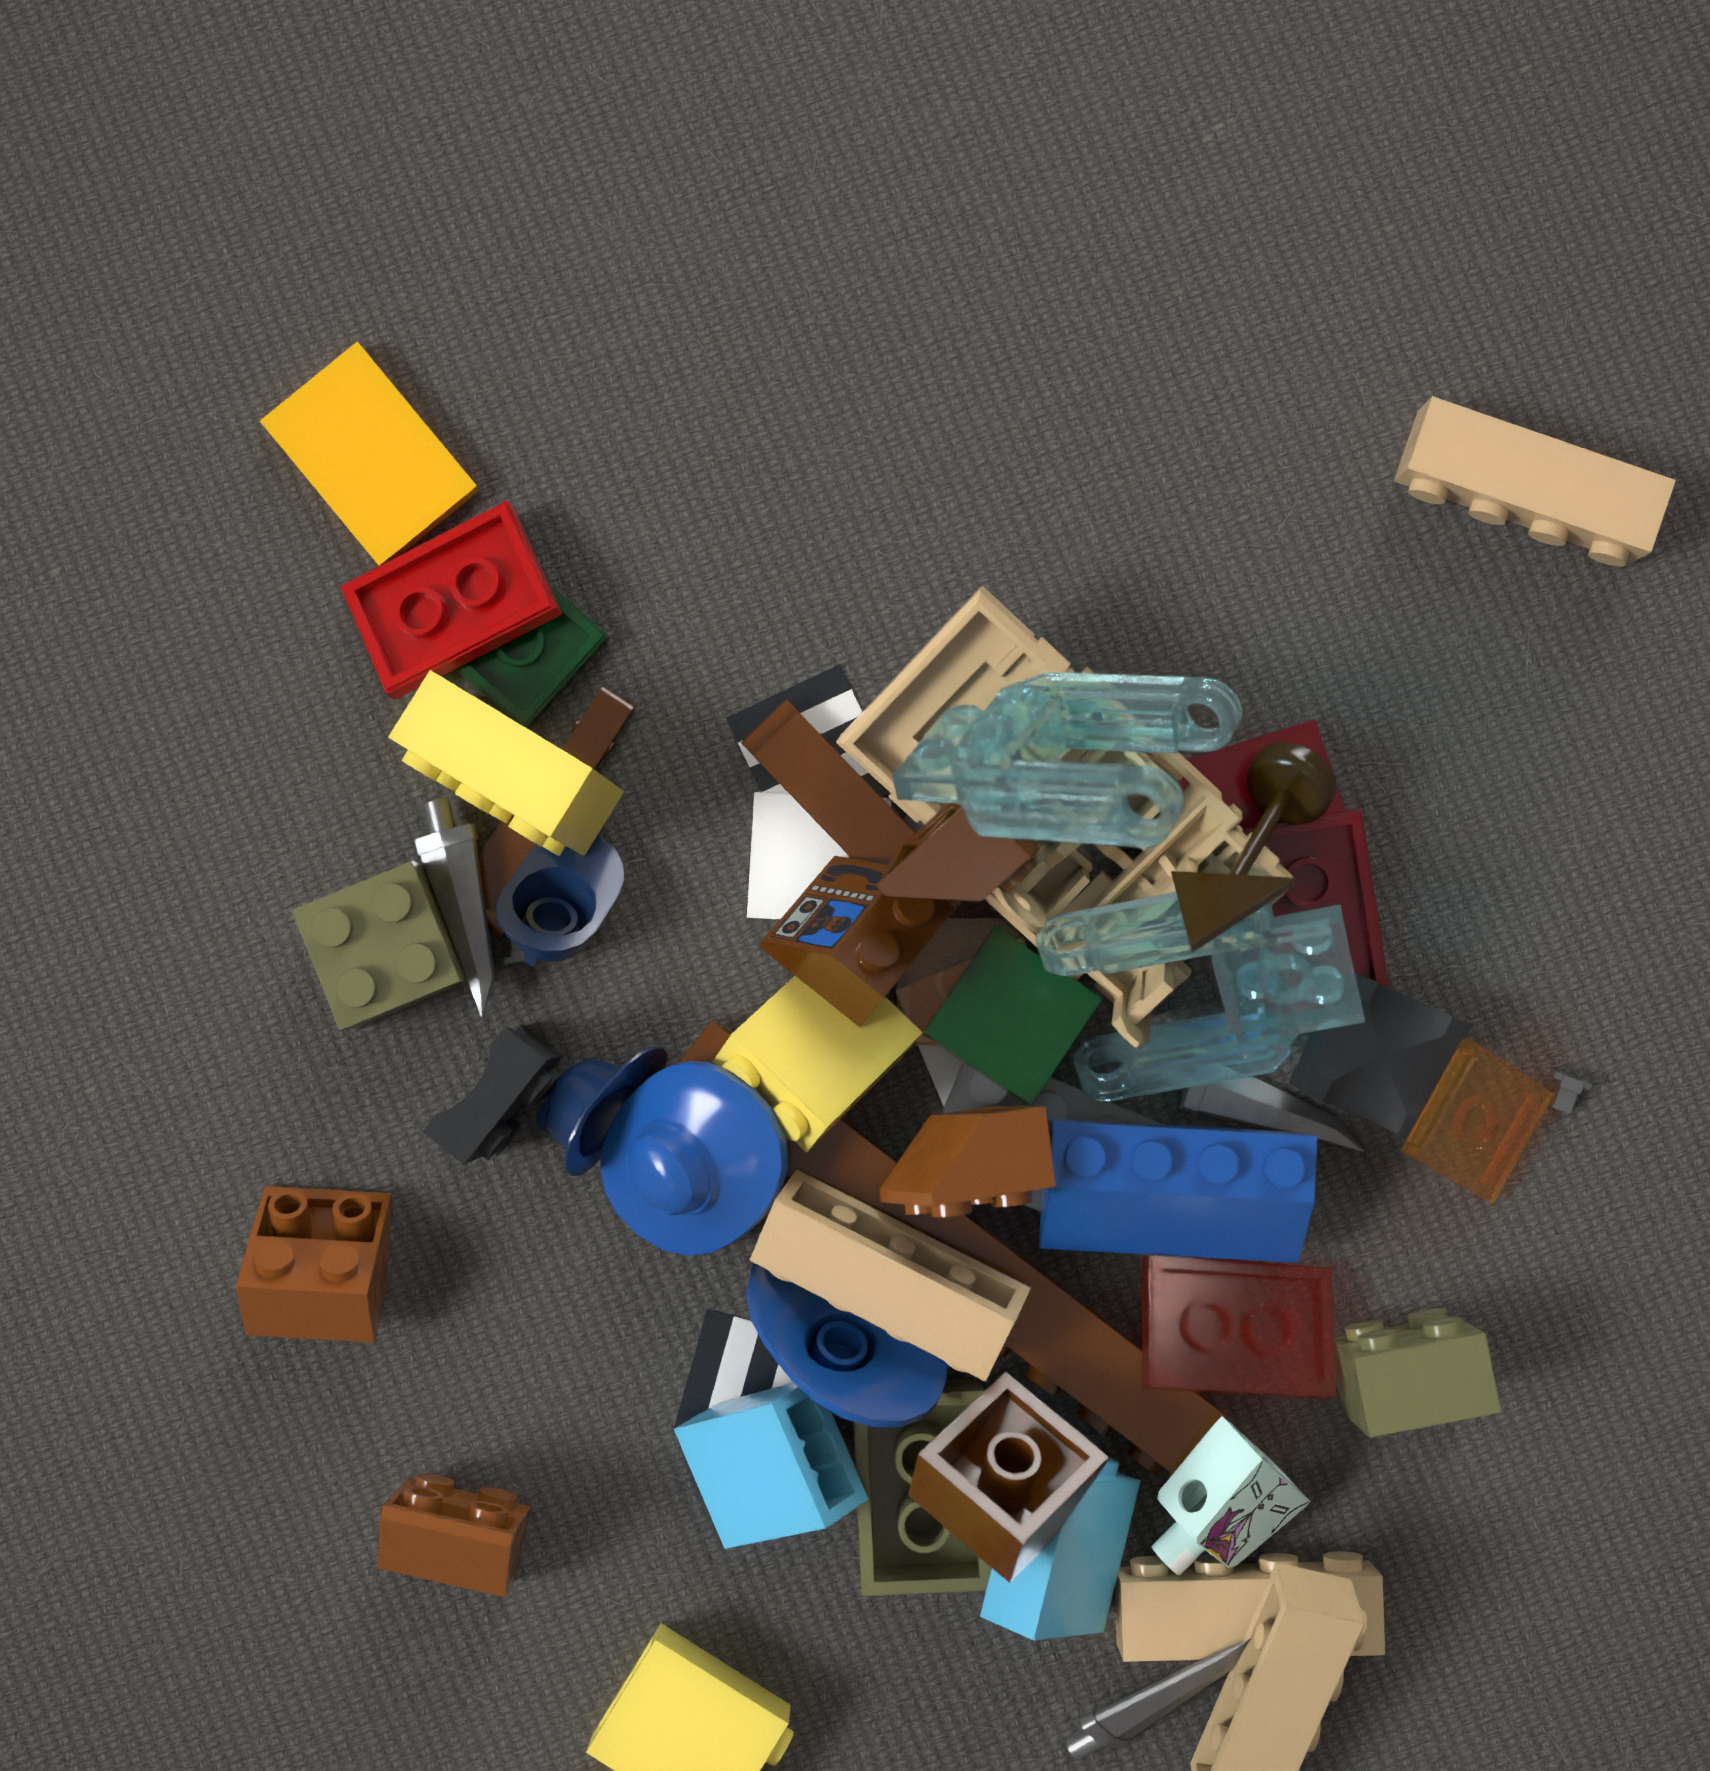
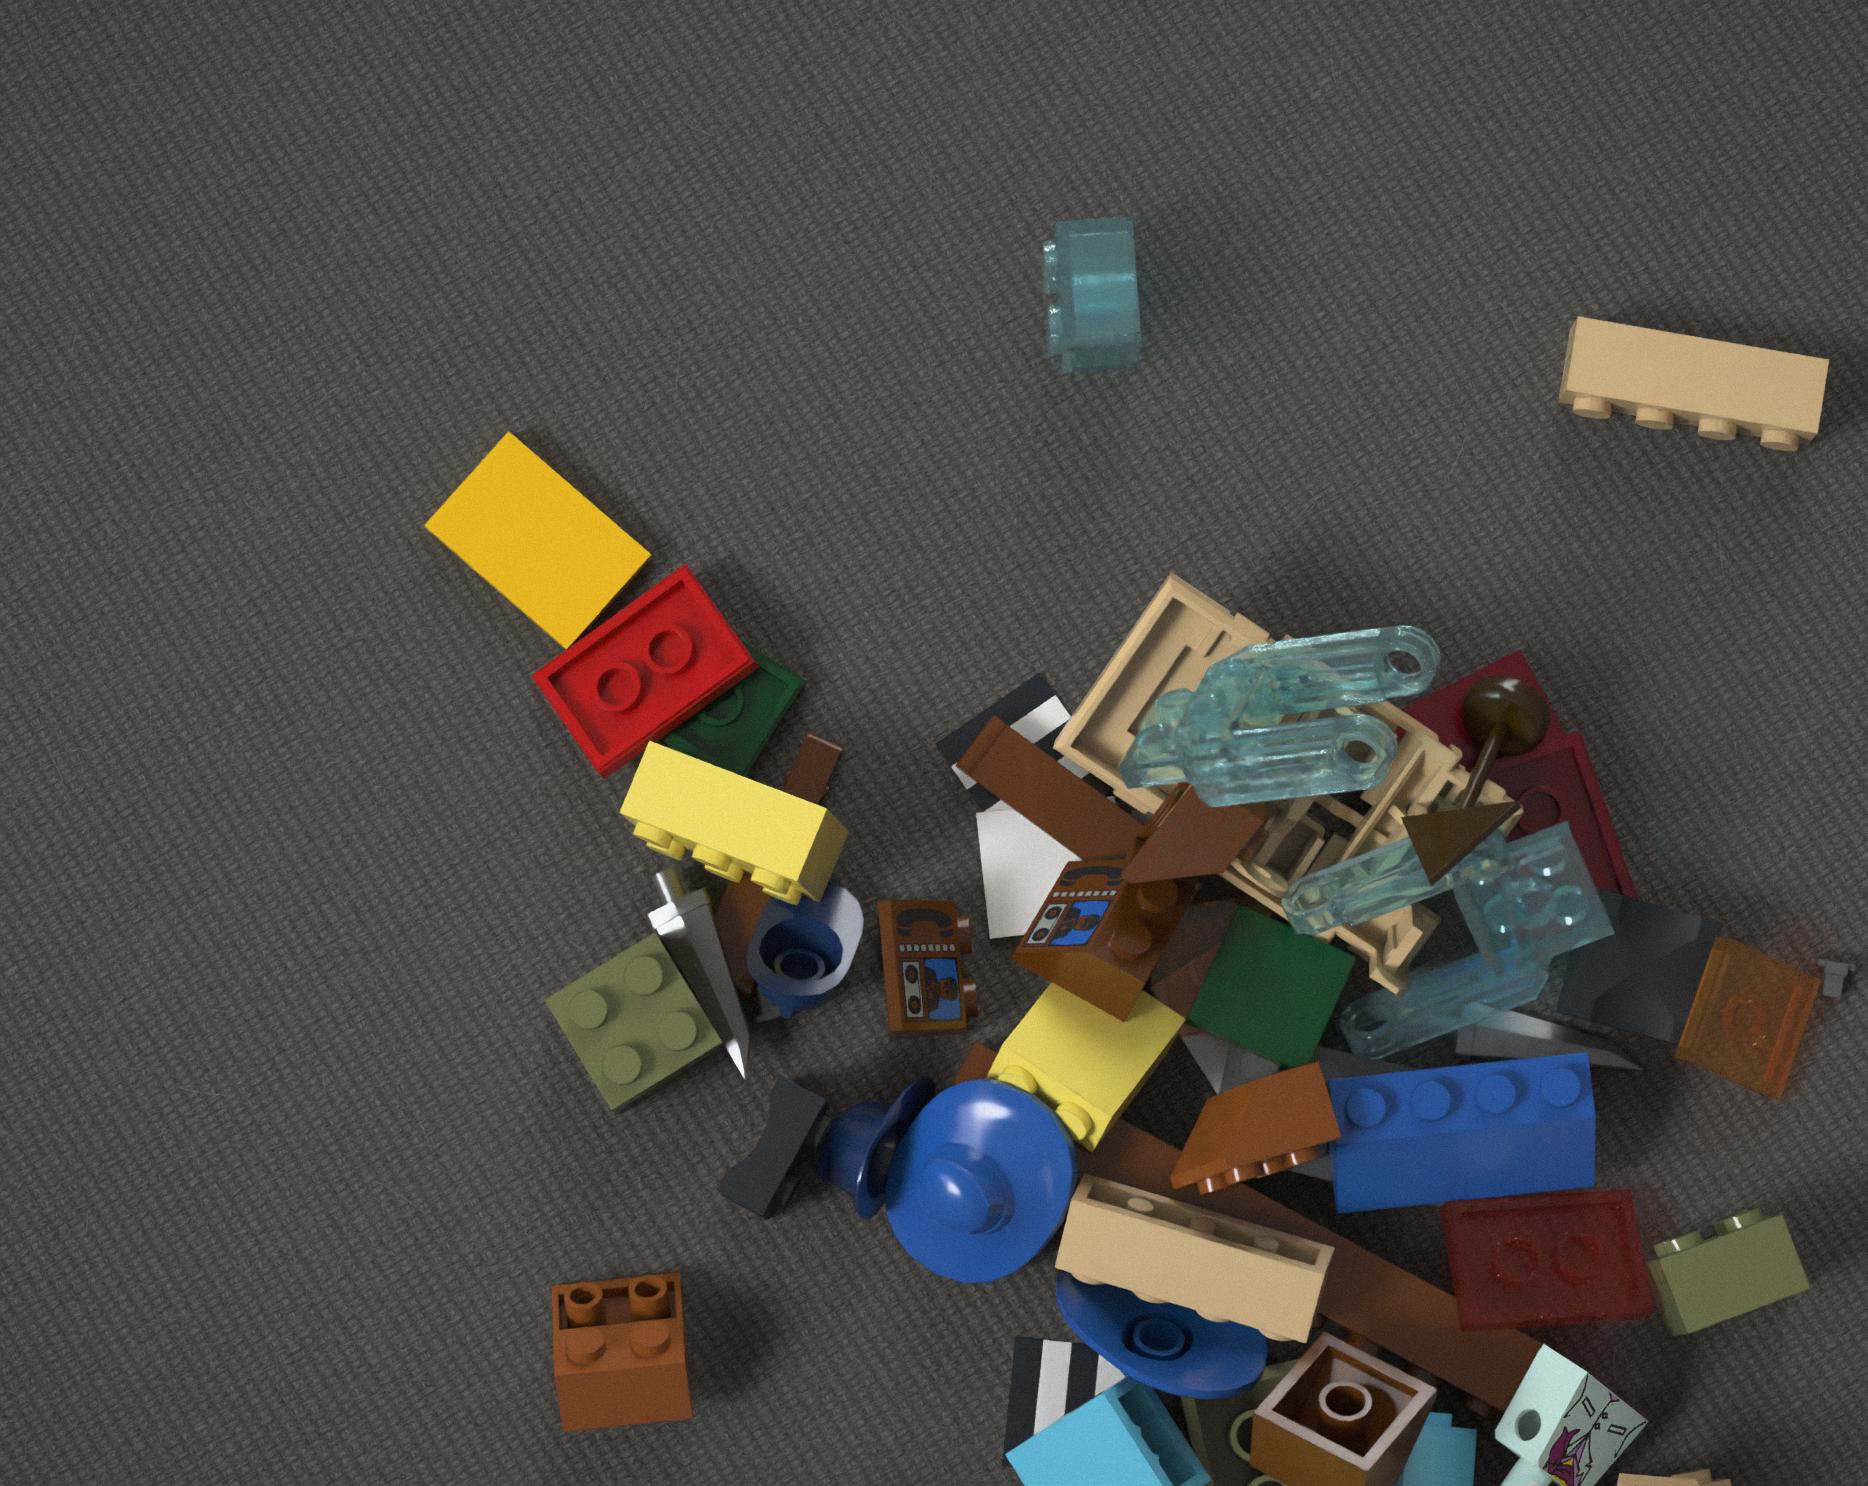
camera: 15 degrees left, 5 degrees down
(673, 939) = (924, 968): none -> reddish brown slope
(956, 283) = (1095, 294): none -> clear light blue brick

